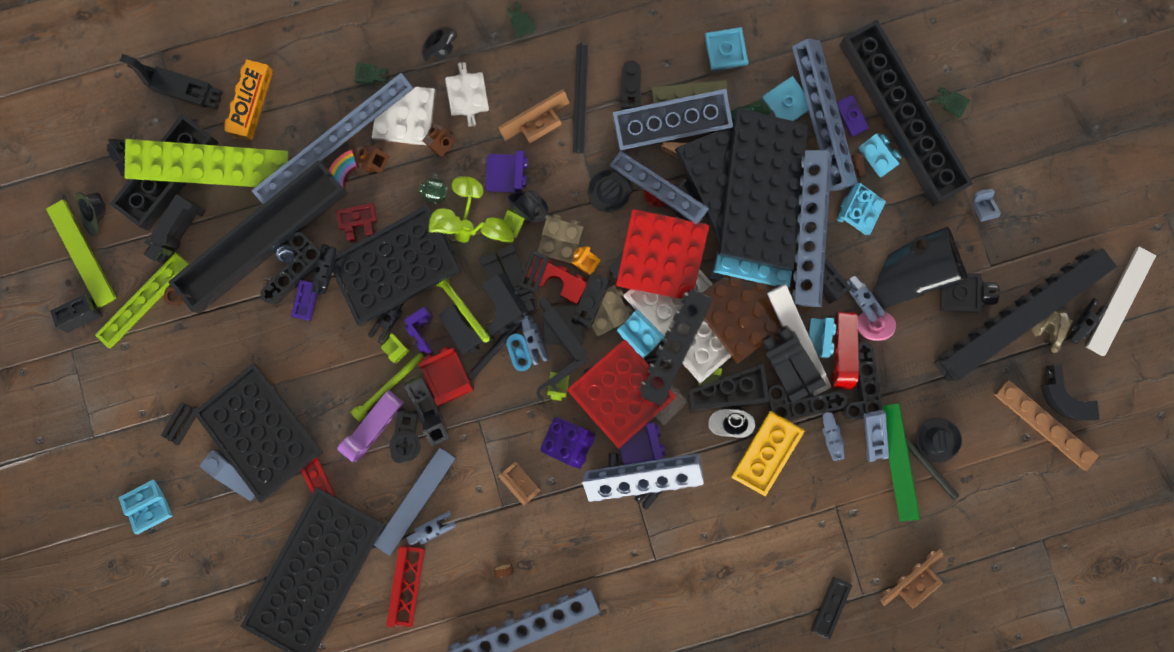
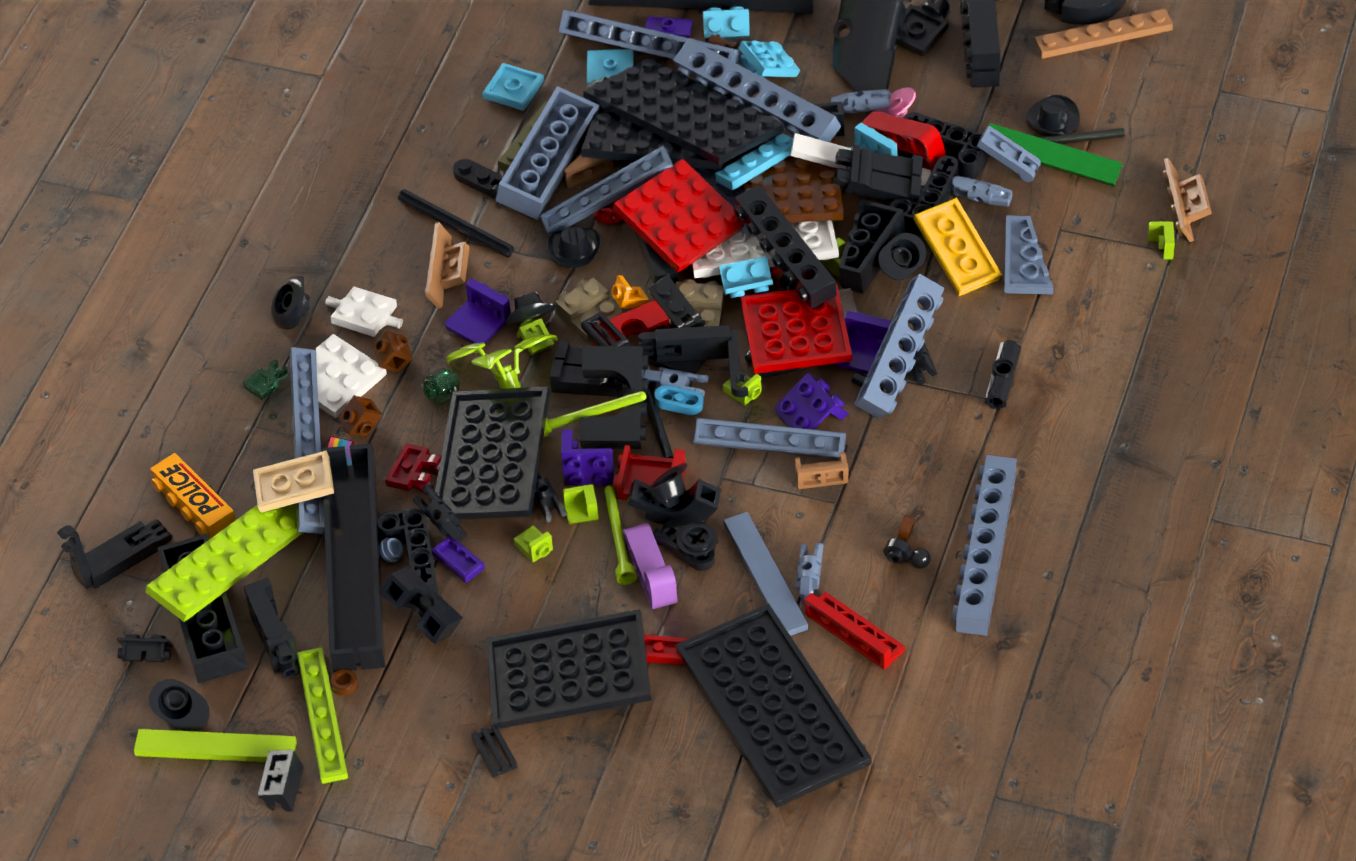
camera: 55 degrees left, 35 degrees down
(145, 506) = (561, 833): medium azure slope -> none
(221, 469) = (591, 725): sand blue slope -> none
(246, 324) = (408, 590): none -> black arch
(280, 161) = (293, 481): none -> tan tile
(348, 338) = (534, 543): none -> lime bracket
(429, 401) = (668, 487): none -> black piece
(486, 593) = (899, 552): none -> black plate
(521, 22) = (330, 232): clear green plate -> none
(524, 433) = (769, 438): none -> sand blue tile
(686, 550) = (1003, 374): none -> black piece
(784, 505) = (1024, 259): none -> sand blue wing
(831, 608) = (1163, 280): black tile -> none
(869, 591) = (1163, 234): none -> lime bracket

